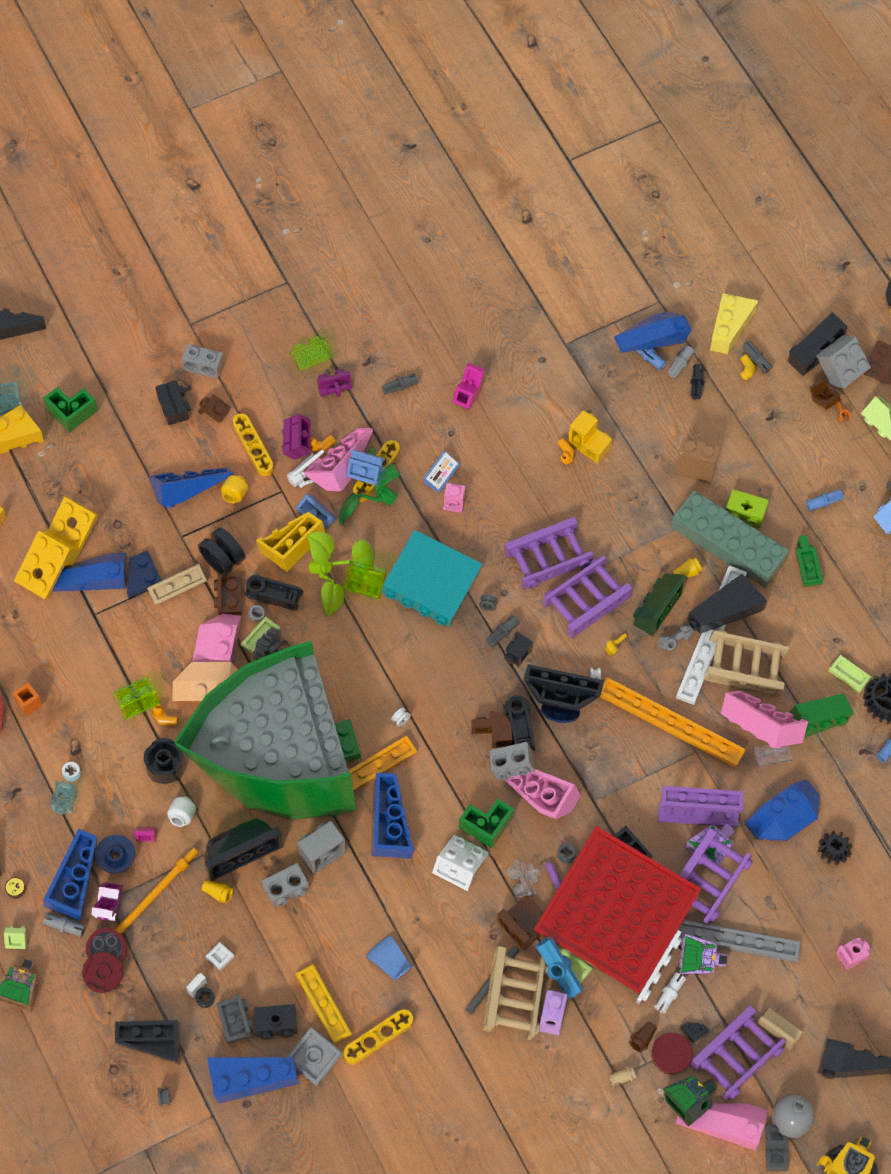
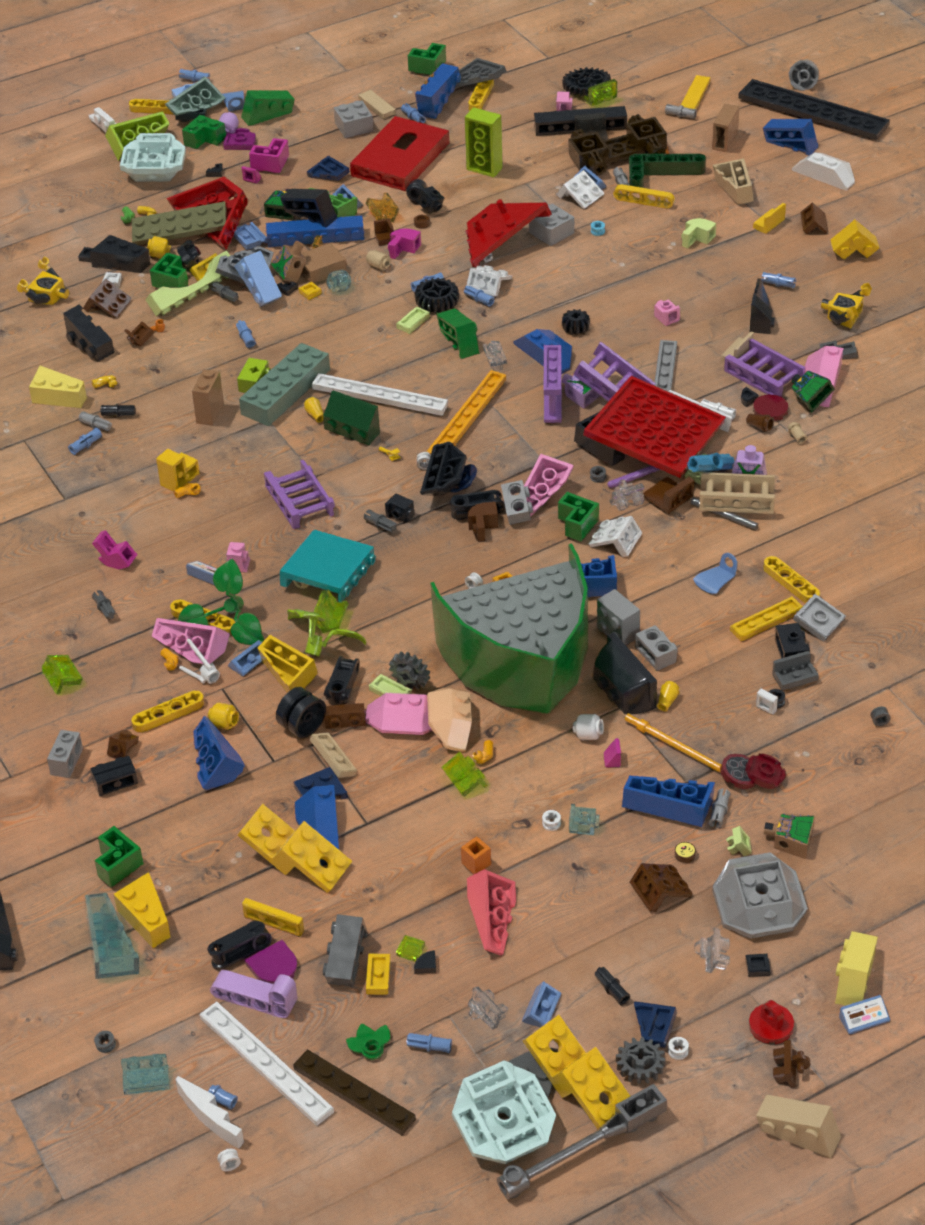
camera: 90 degrees left, 20 degrees down
(108, 901) = (689, 769): magenta brick -> none
(115, 845) = (639, 767): dark blue dish -> none
(152, 1038) = (826, 724): black wedge -> none
(162, 771) = (537, 741): black brick -> none
(220, 956) = (732, 692): white tile -> none
(250, 1076) = (851, 655): blue wedge -> none
(256, 610) = (366, 691): light grey hinge -> none
(296, 436) = (164, 672): magenta brick -> none
(335, 383) = (102, 649): magenta hips -> none
(364, 466) = (209, 606): medium blue plate -> none
(488, 602) = (351, 531): dark grey bush -> none
(590, 614) = (351, 455): medium lavender fence -> none
(654, 332) = (62, 428): blue wedge -> none
(669, 643) = (388, 417): light grey bar -> none
(699, 956) = (688, 386): torso -> none
(727, 605) = (354, 376): black slope -> none
(735, 677) = (423, 374): tan fence -> none
(757, 357) = (95, 373): dark grey axle -> none
(763, 720) = (468, 351): bright pink wedge -> none
(793, 1116) = (811, 336): light grey cylinder -> none
(808, 563) = (315, 340): green hinge -> none
(843, 361) = (109, 315): light grey brick -> none

